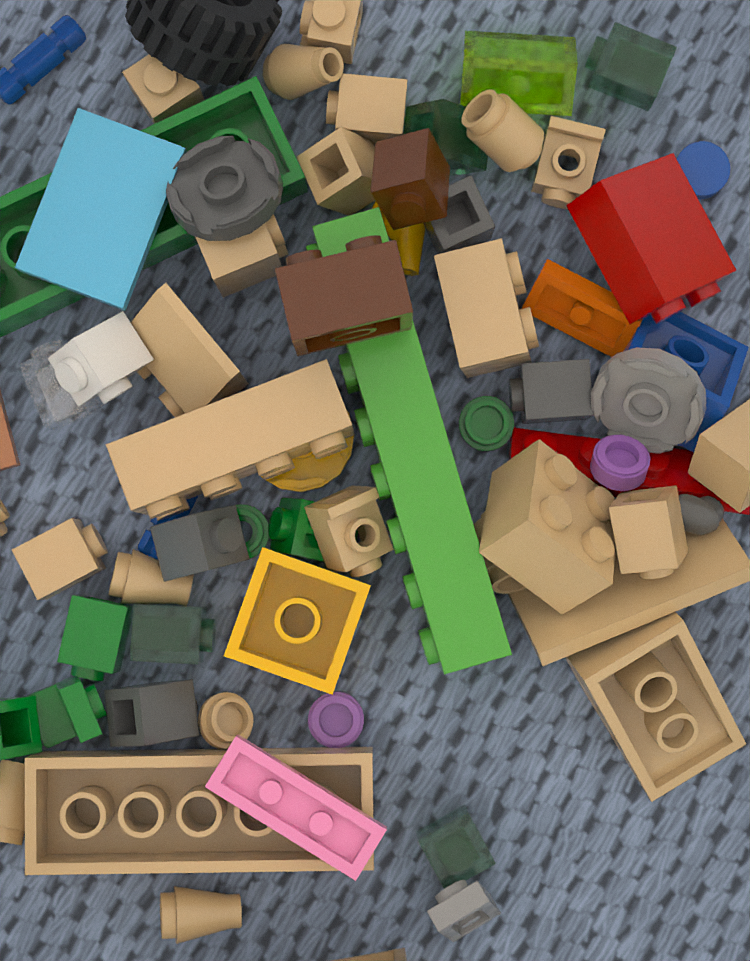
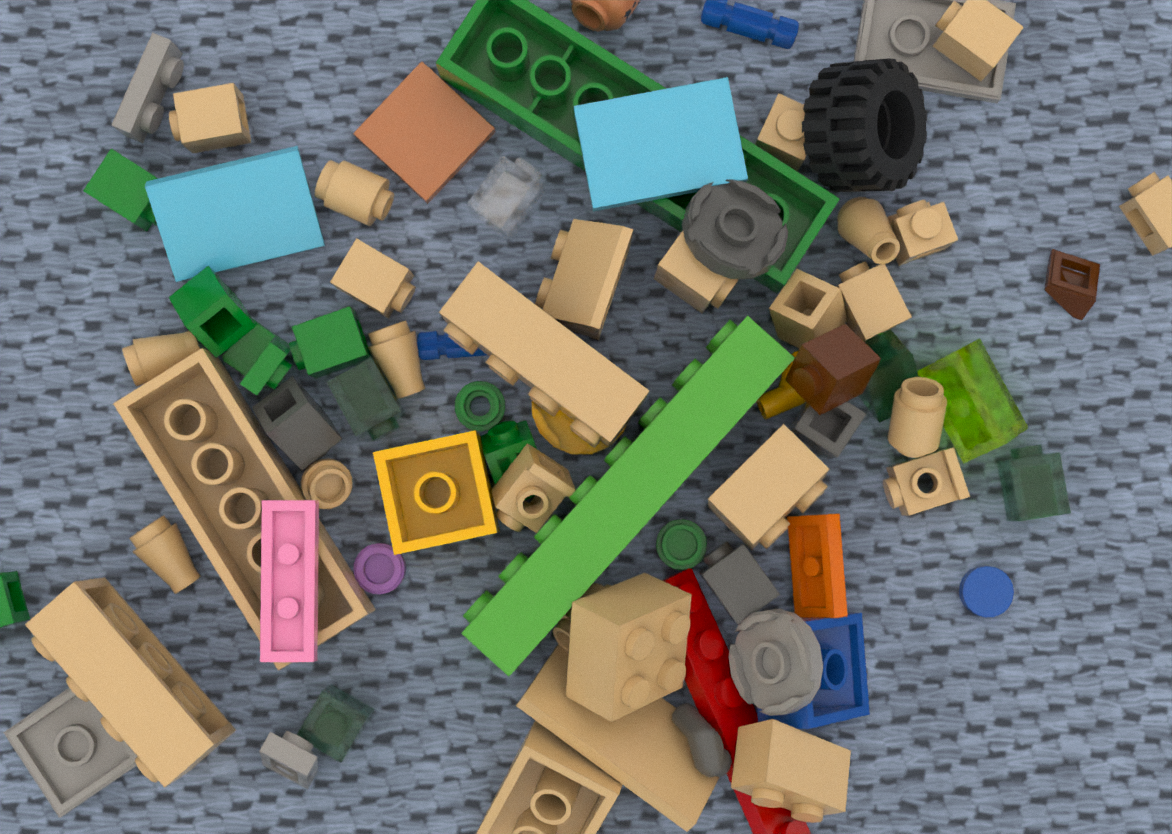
camera: 55 degrees right, 0 degrees up
(100, 360) = (543, 216): white brick -> none
(199, 542) = (449, 379): dark grey brick -> none
(344, 295) = (705, 374): reddish brown brick -> none
(620, 462) = (713, 669): medium lavender tile -> none
(649, 531) = (671, 725): tan brick -> none
(652, 240) = (904, 587): red brick -> none

